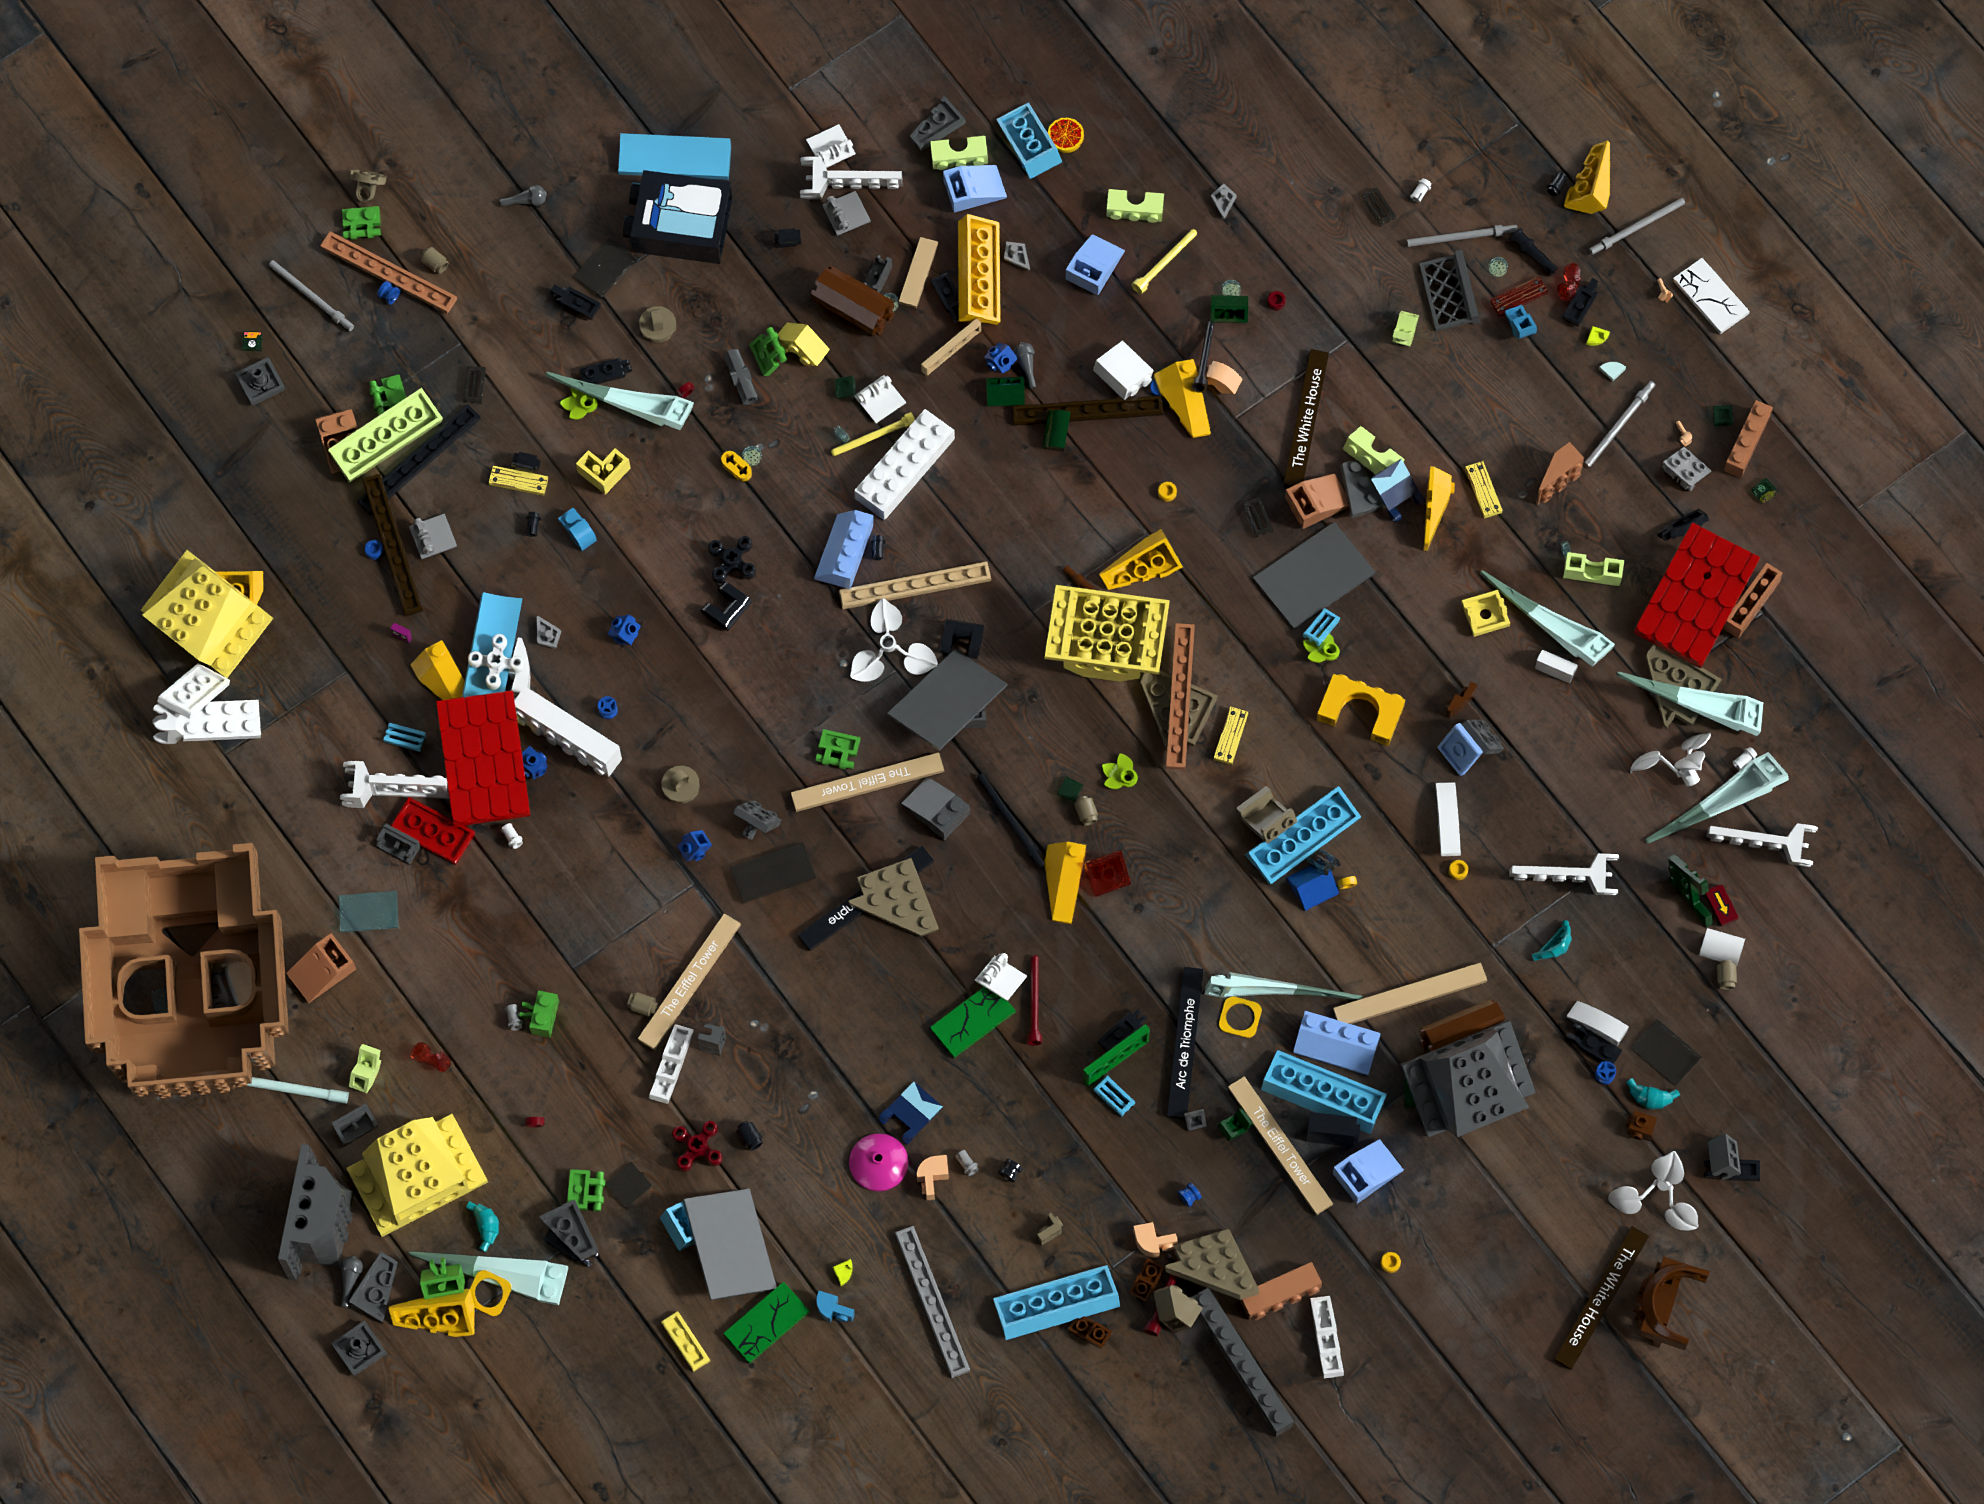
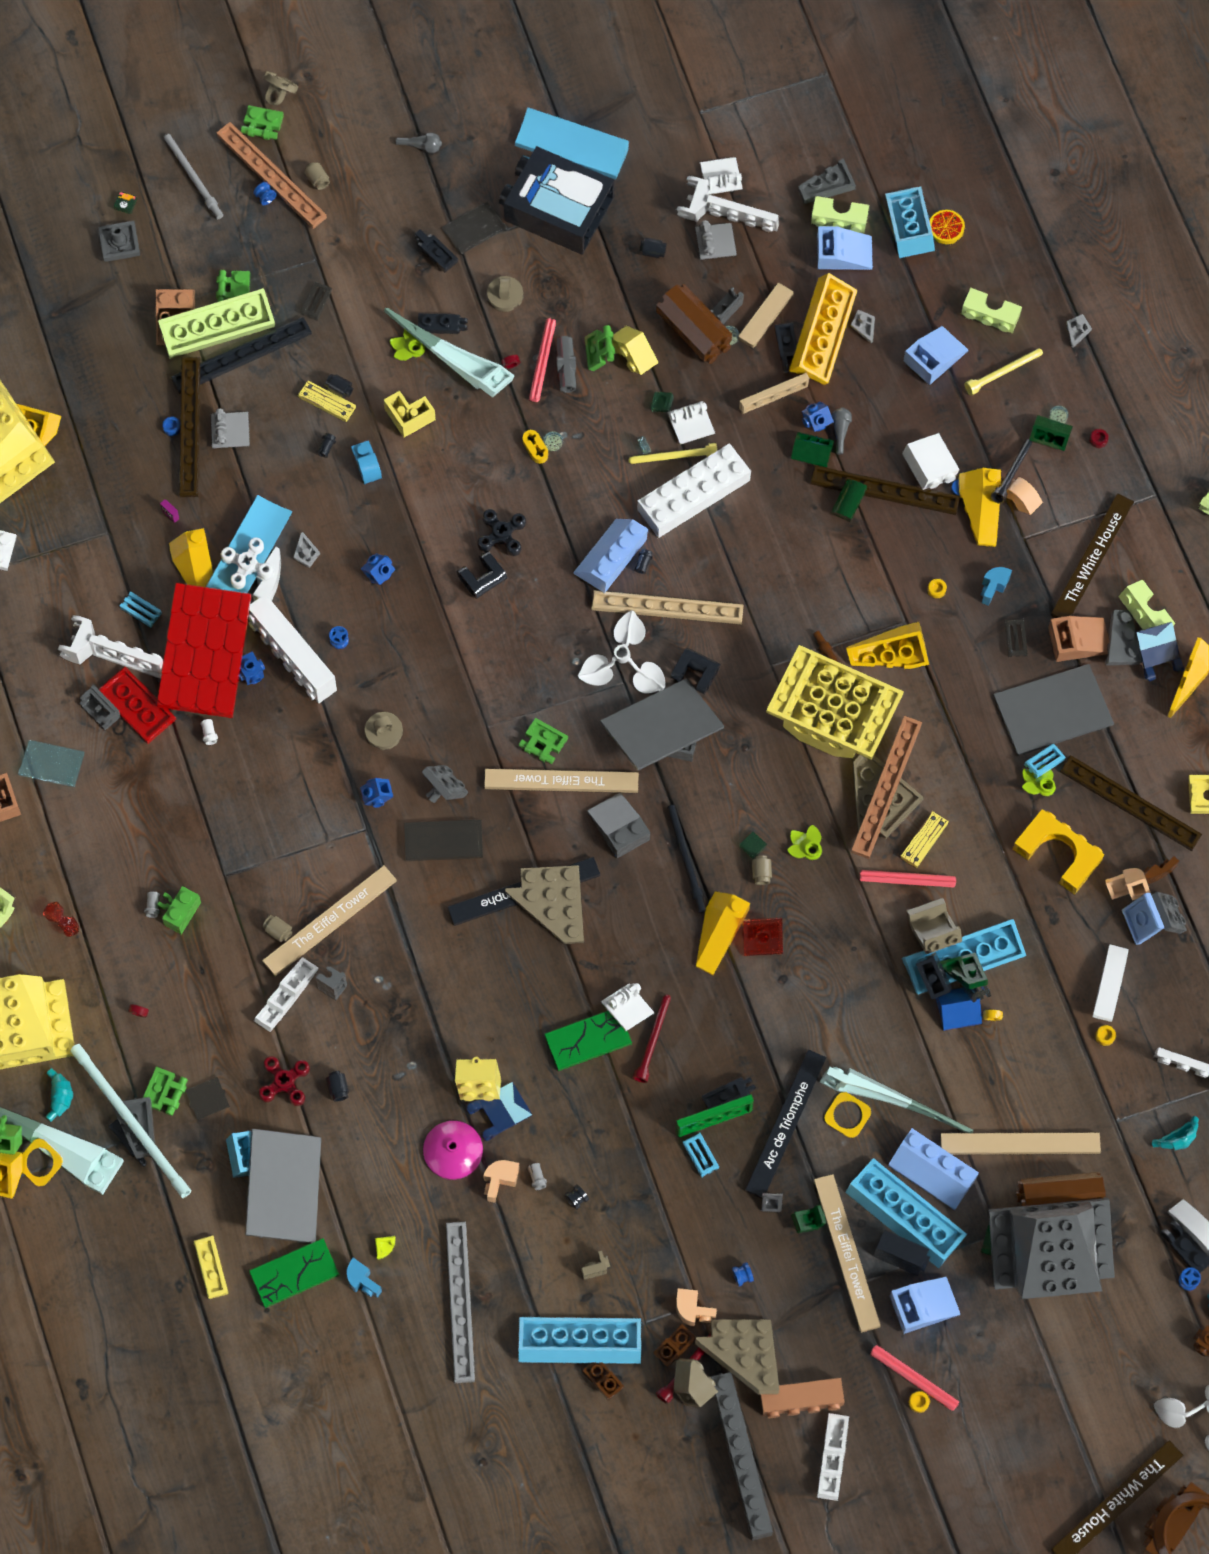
camera: 15 degrees right, 0 degrees up
(629, 1269) = (176, 1181): none -> light aqua piece
(715, 379) = (542, 360): none -> coral axle
(882, 1088) = (478, 1079): none -> light yellow brick
(1219, 468) = (994, 580): none -> dark azure brick
(1226, 777) = (907, 878): none -> coral axle
(1281, 861) = (933, 975): none -> black brick
(1309, 847) = (966, 970): none -> dark green wing
(1379, 1241) = (914, 1377): none -> coral axle
(1414, 643) = (1131, 803): none -> dark brown tile
(1438, 718) = (1131, 882): none -> light nougat brick

